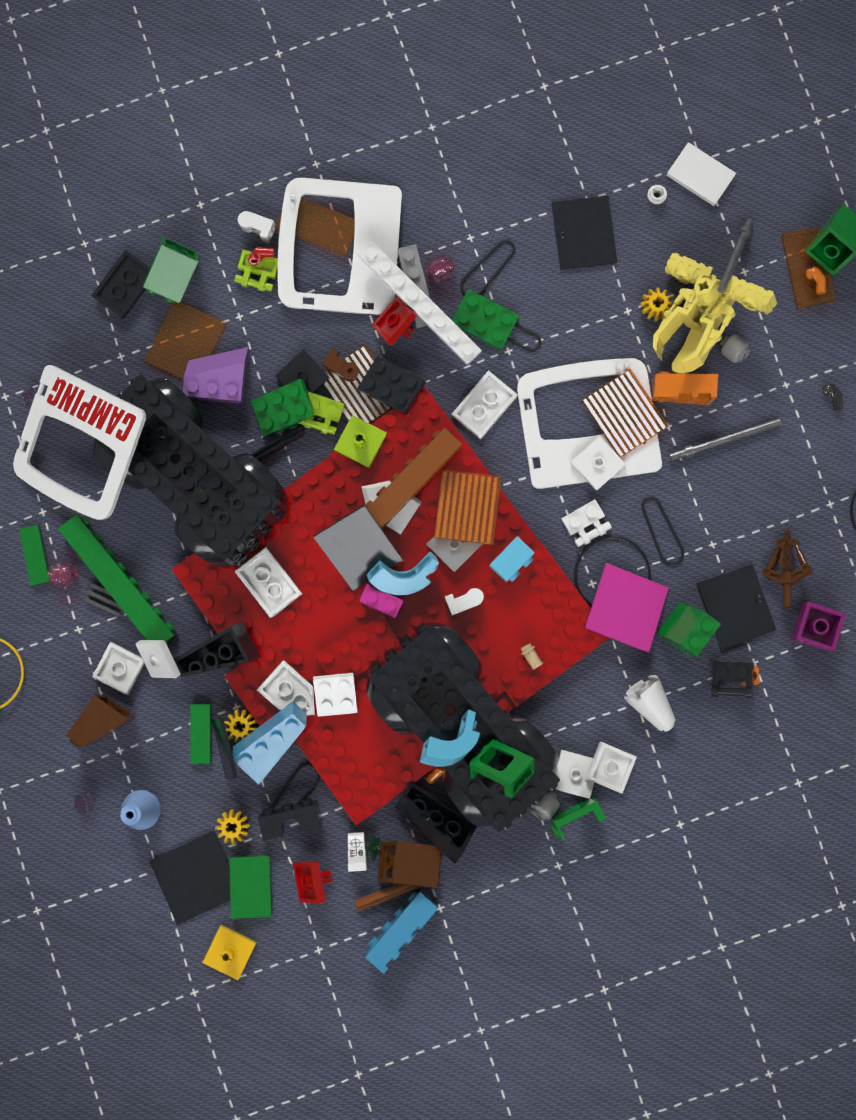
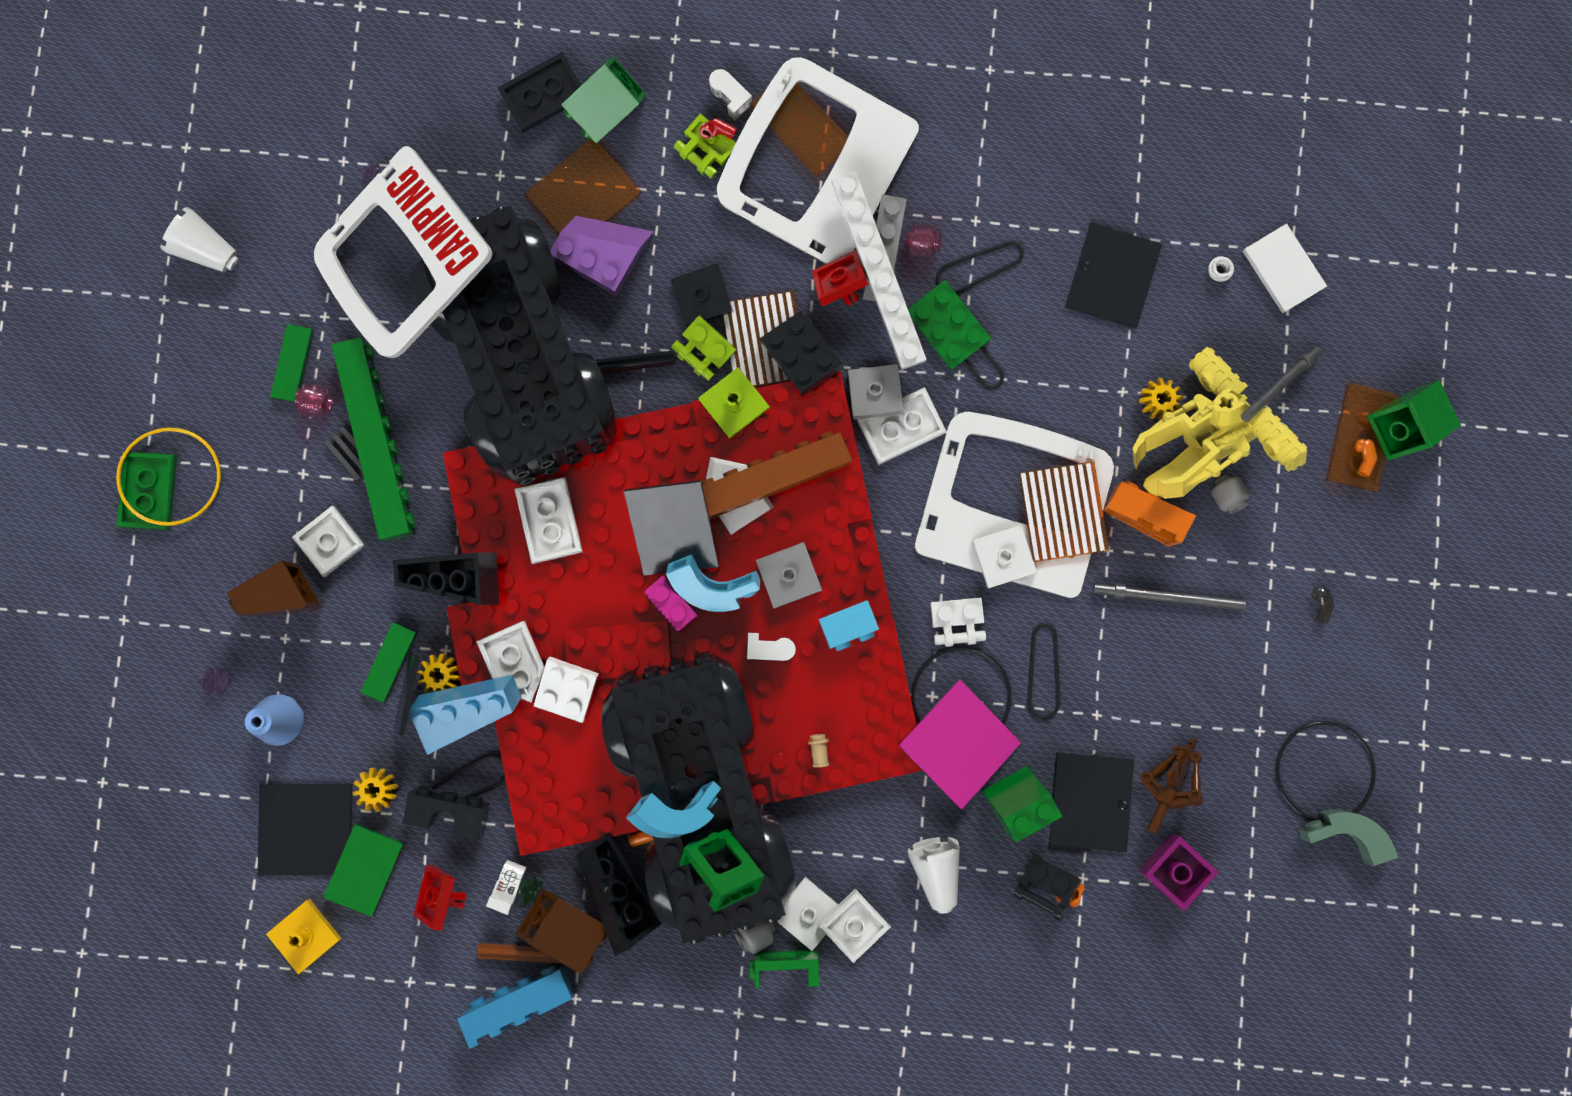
camera: 15 degrees right, 0 degrees up
(158, 658) = (377, 551): white plate -> none
(283, 408) = (661, 322): green plate -> none
(339, 367) = (756, 311): reddish brown leg -> none
(455, 389) = (875, 392): none -> light grey plate
(467, 507) = (824, 538): clear orange piece -> none

